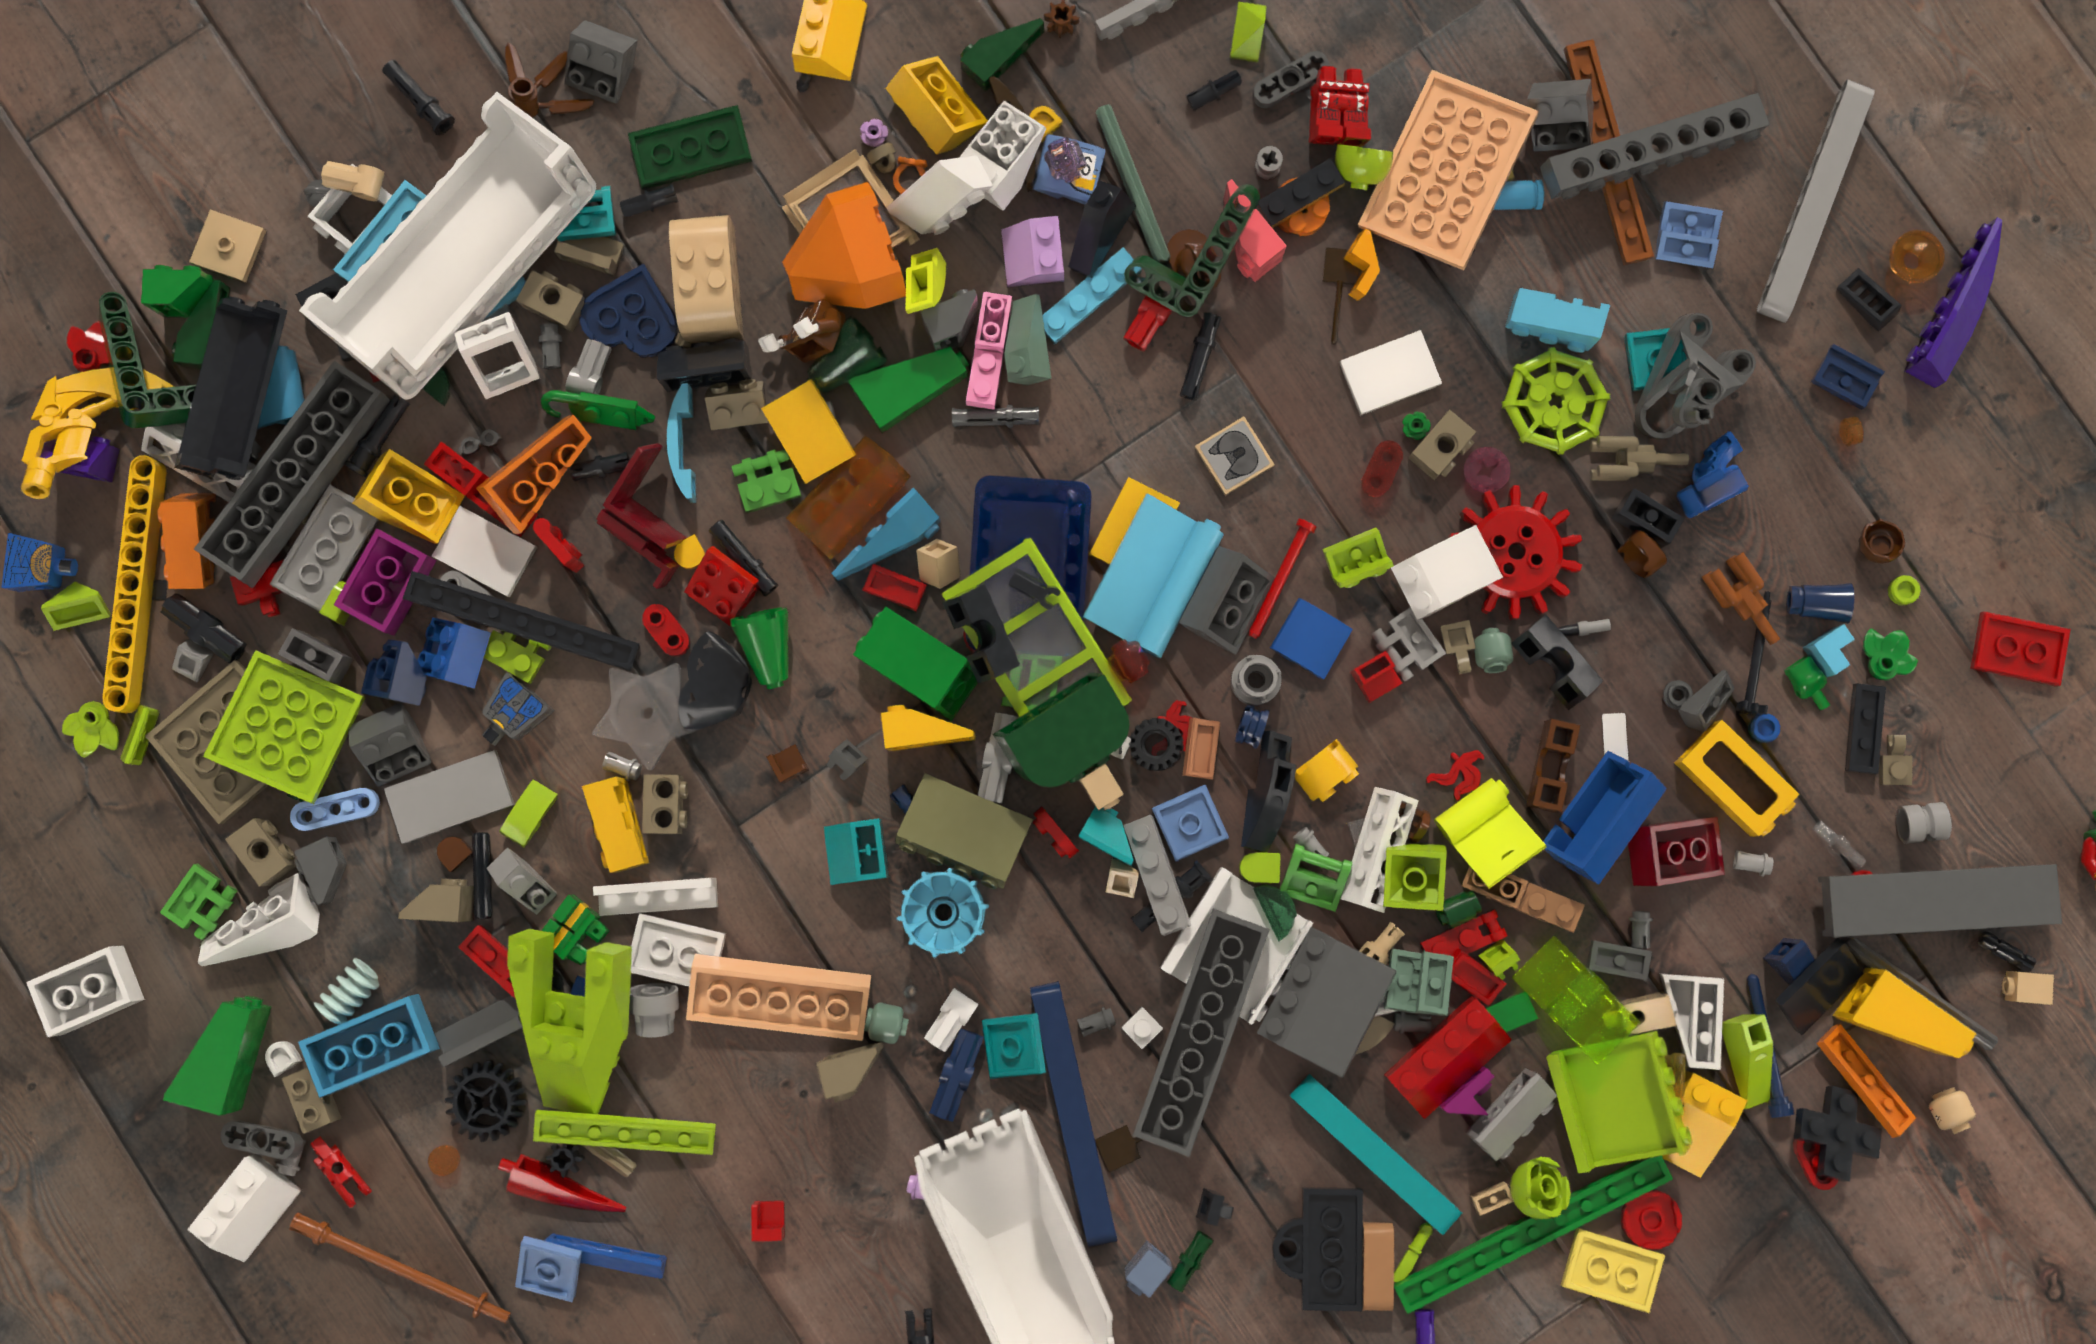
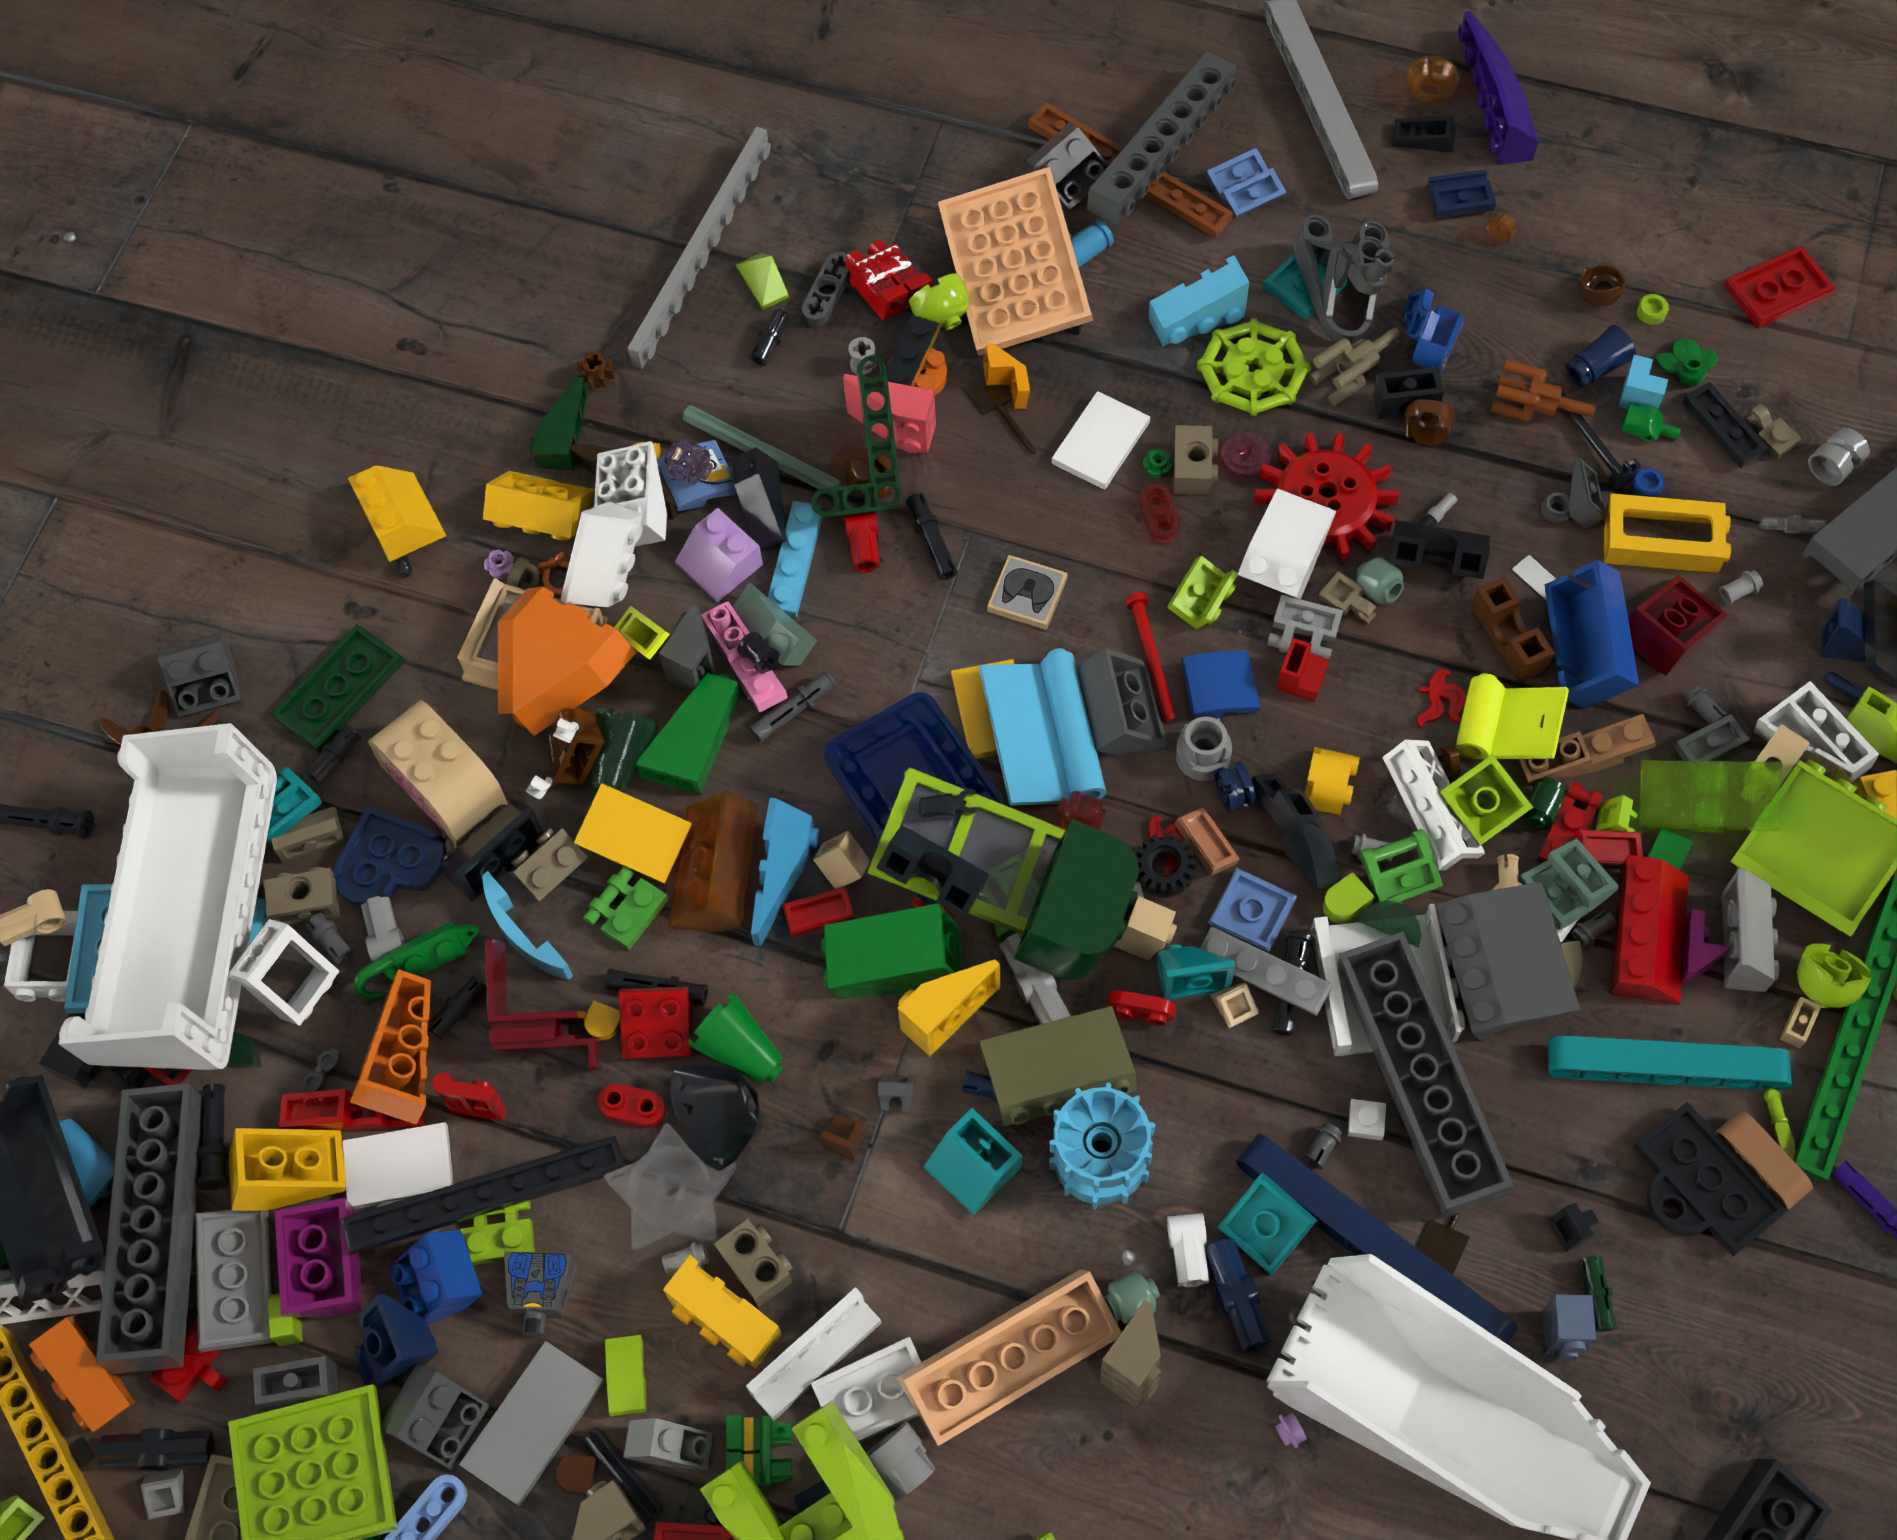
camera: 40 degrees left, 20 degrees down
(995, 361) = (756, 641): none -> black bush

